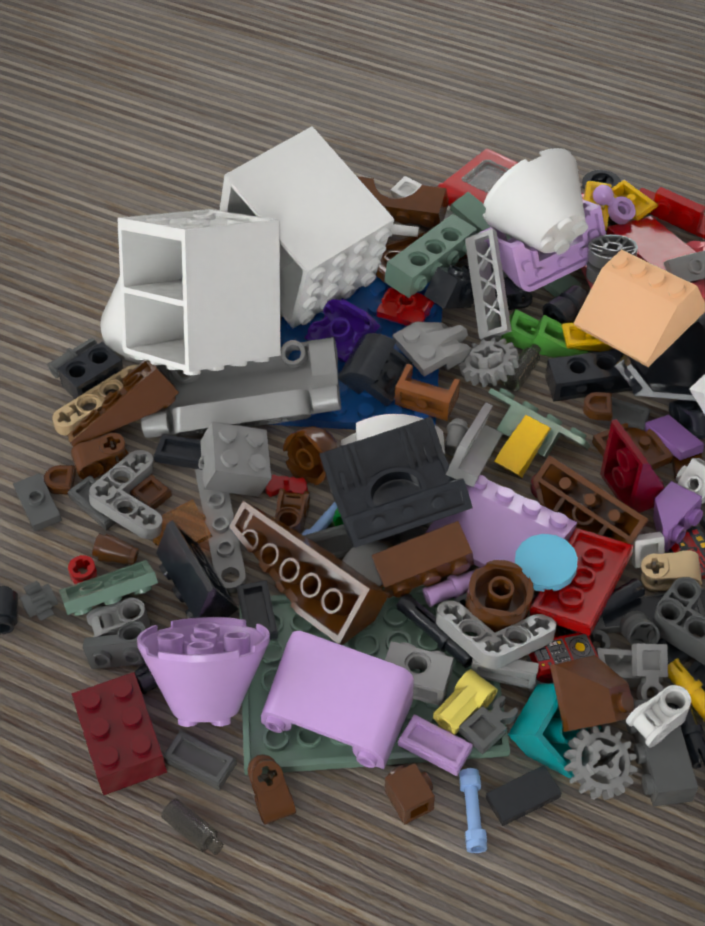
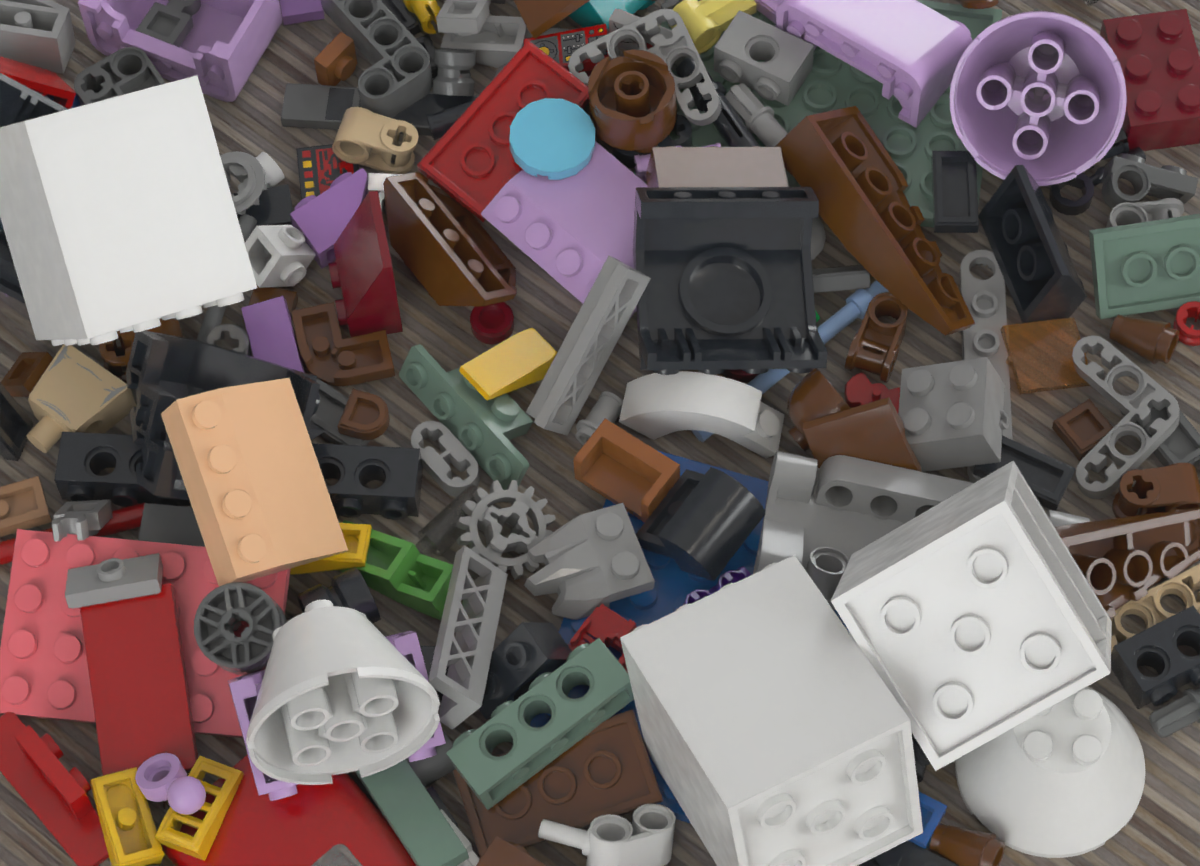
camera: 165 degrees left, 10 degrees up
(285, 425) = (862, 432): none -> reddish brown slope
(406, 629) = (757, 117): none -> light grey axle
(542, 399) = (452, 452): none -> light grey beam

